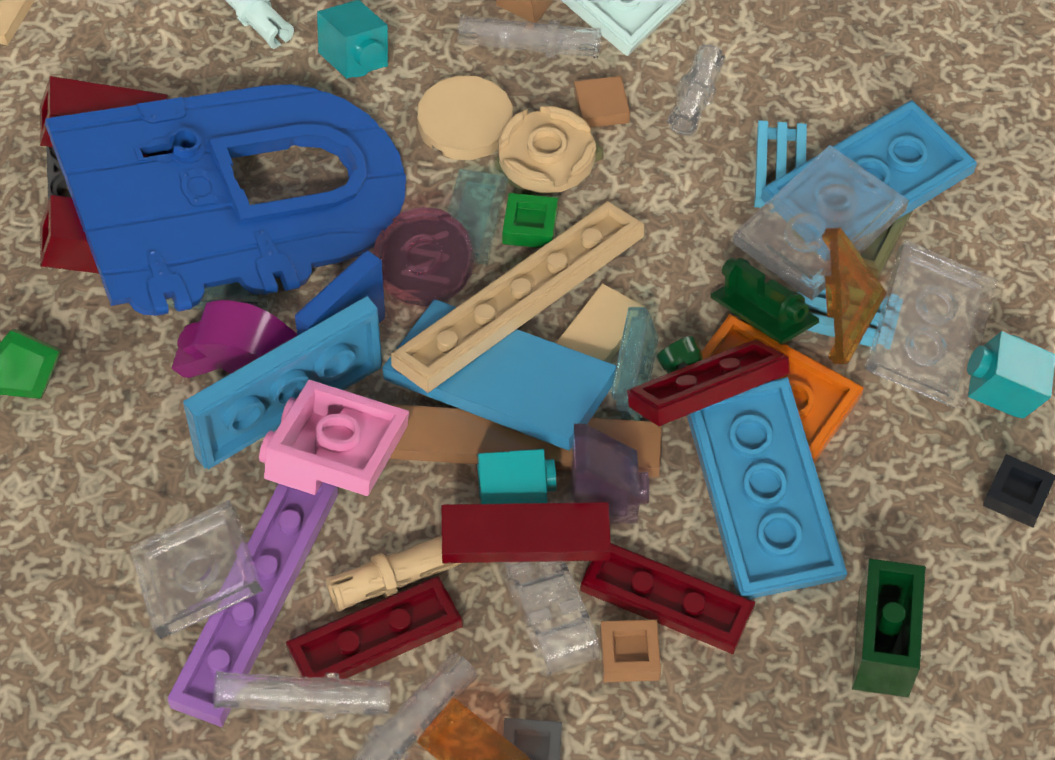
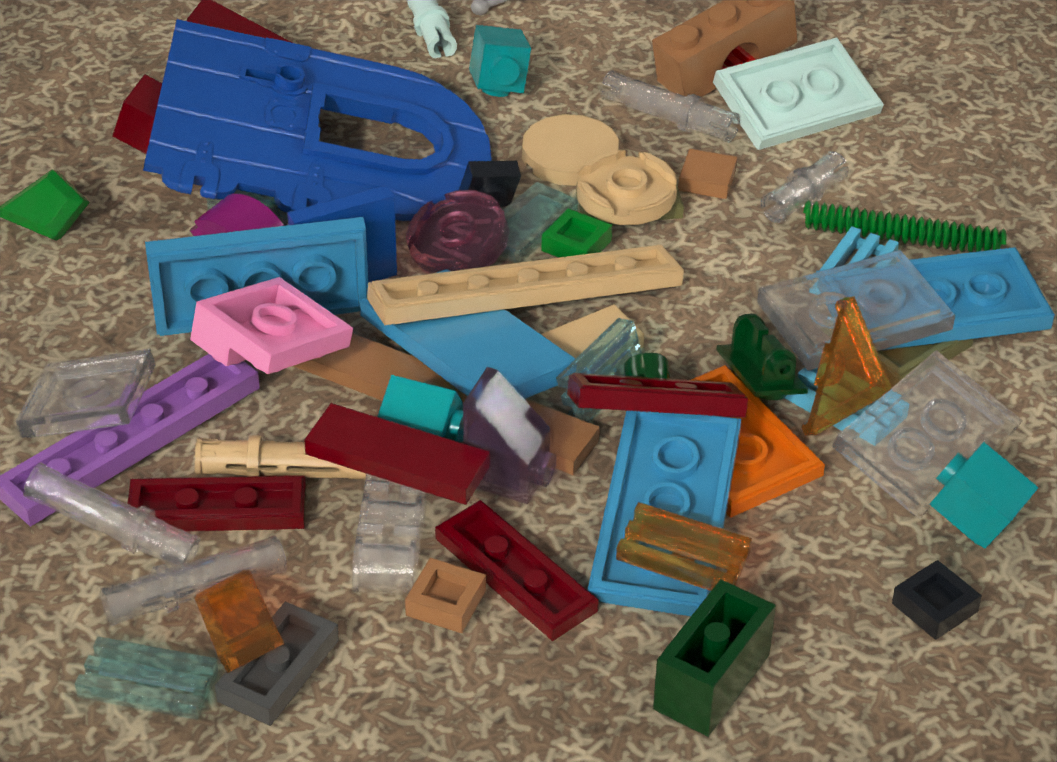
camera: 25 degrees right, 15 degrees down
(425, 189) = (493, 178): none -> black plate
(807, 509) = (687, 541): none -> clear orange tile
(879, 95) = (898, 228): none -> green piece

